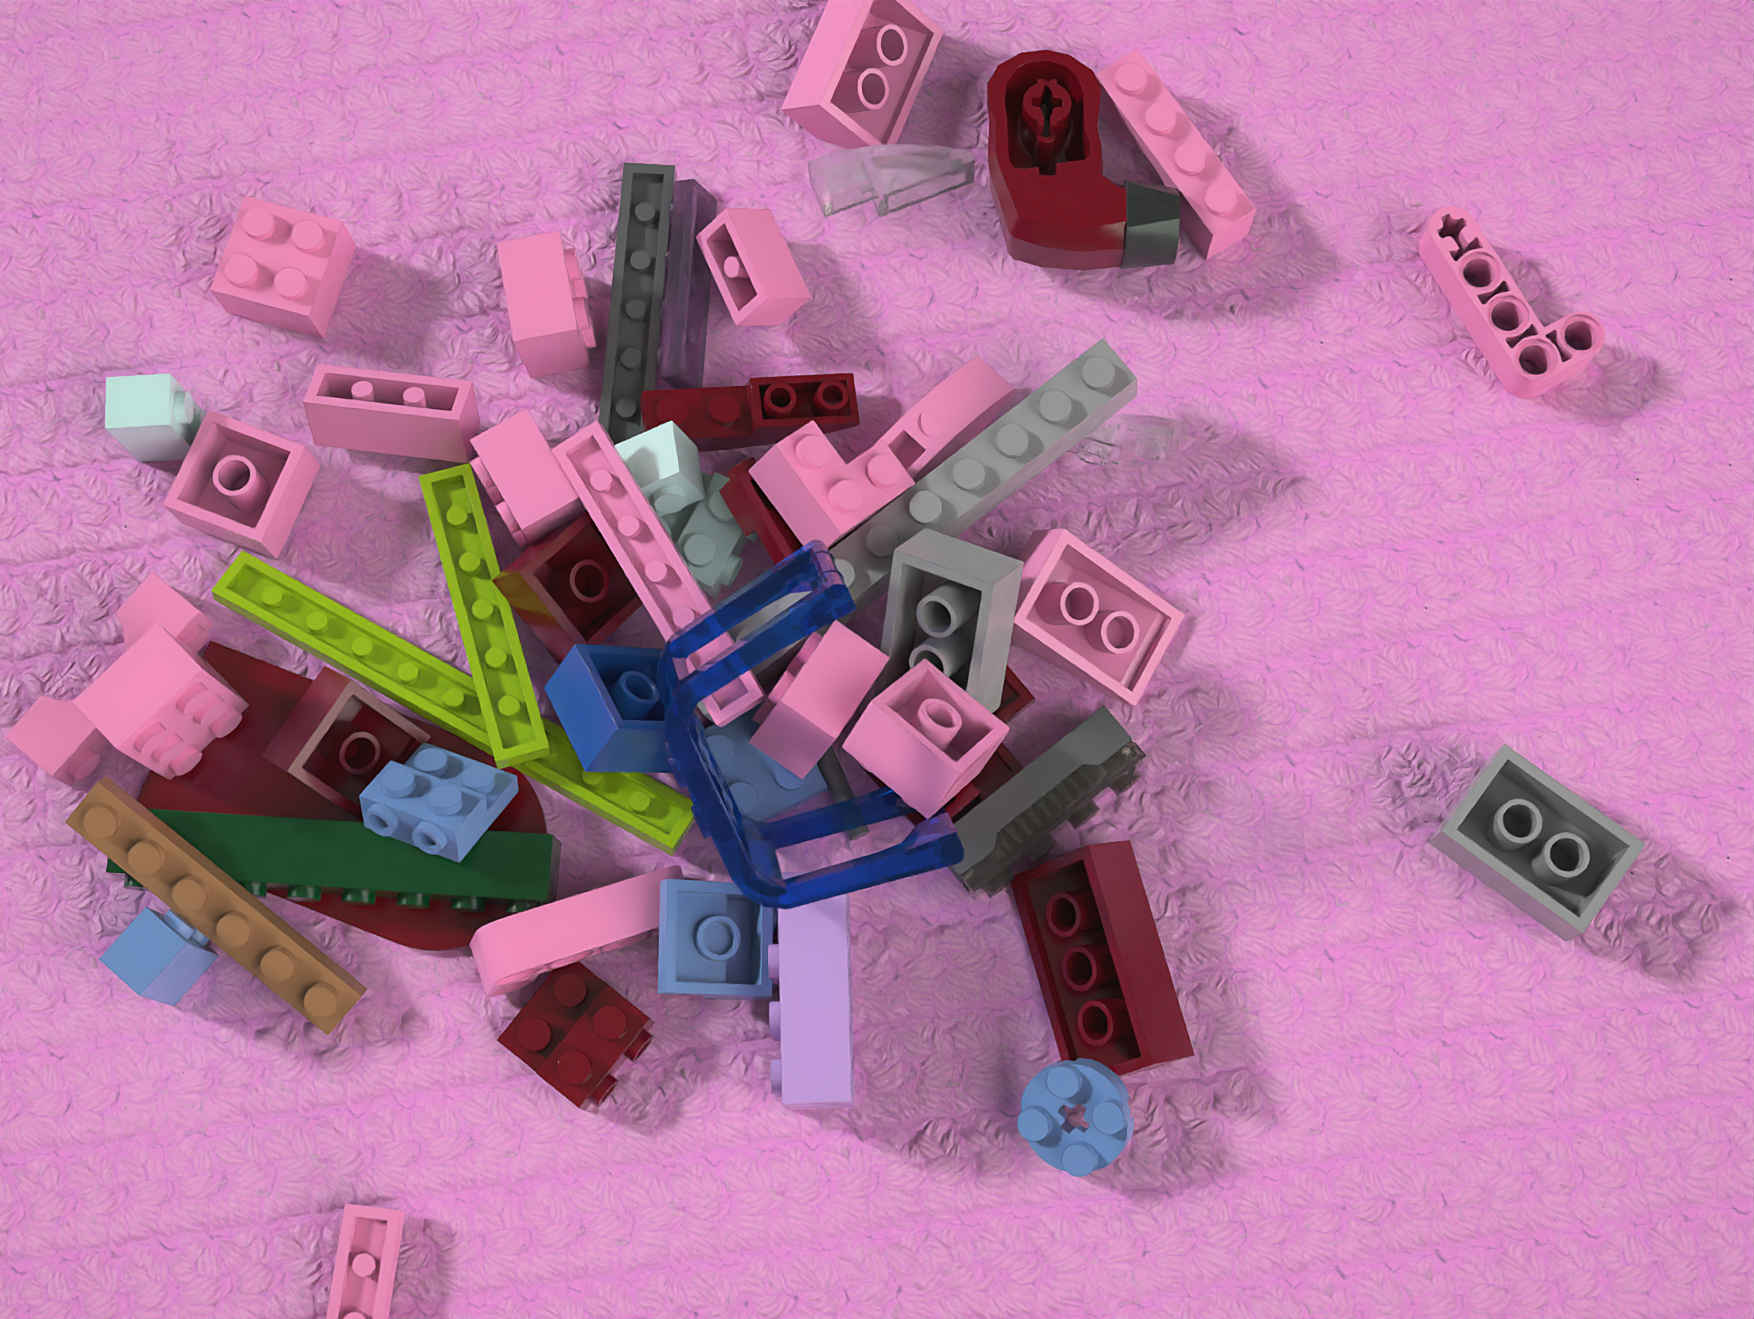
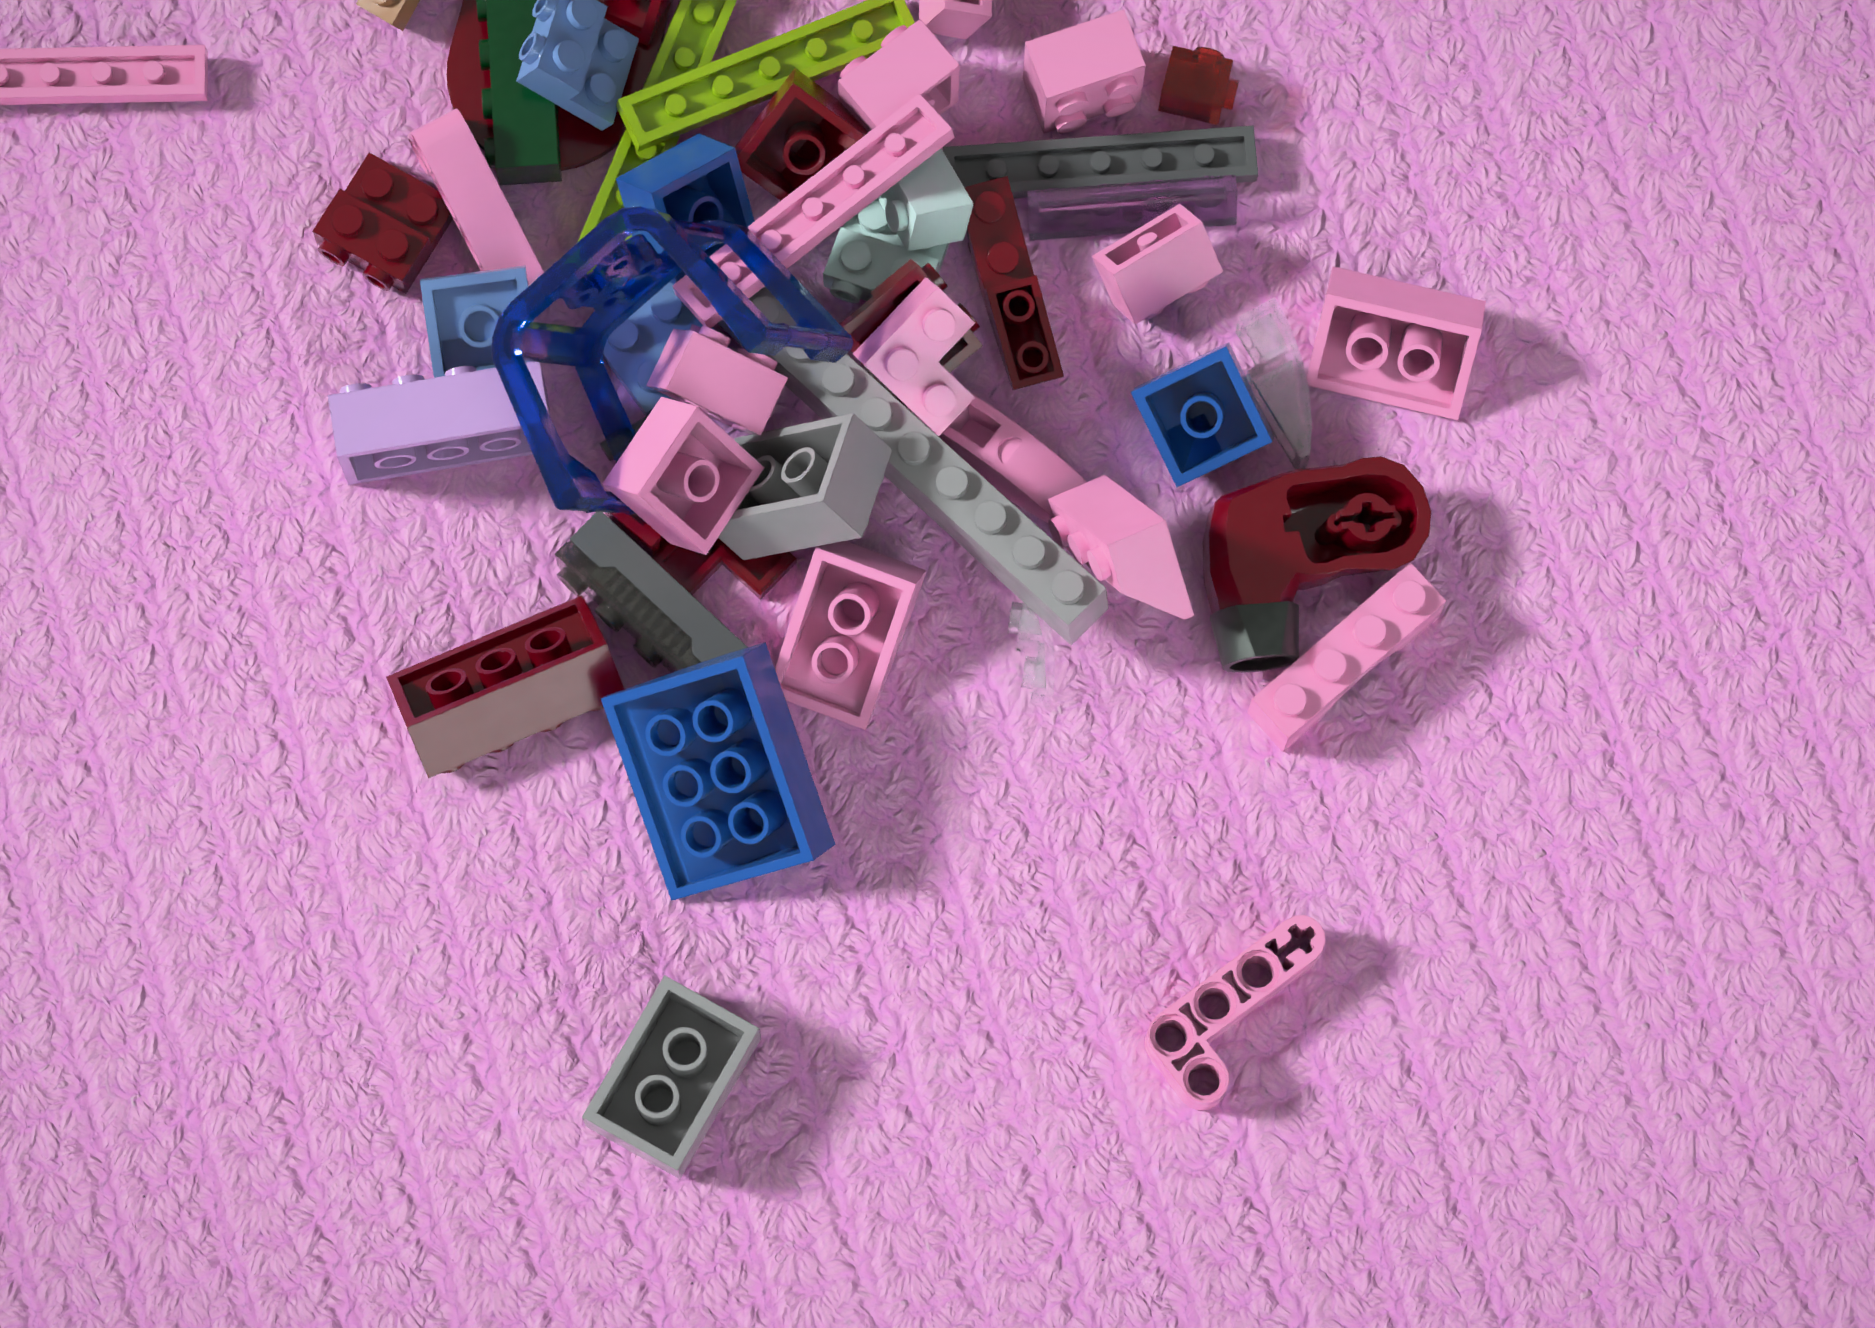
camera: 75 degrees right, 0 degrees up
(573, 205) = (1198, 84): none -> clear red brick
(914, 244) = (1202, 414): none -> blue slope
(1046, 1124) = (345, 657): medium blue plate -> none
(1053, 319) = (1121, 543): none -> bright pink slope
(1227, 754) = (719, 772): none -> blue slope

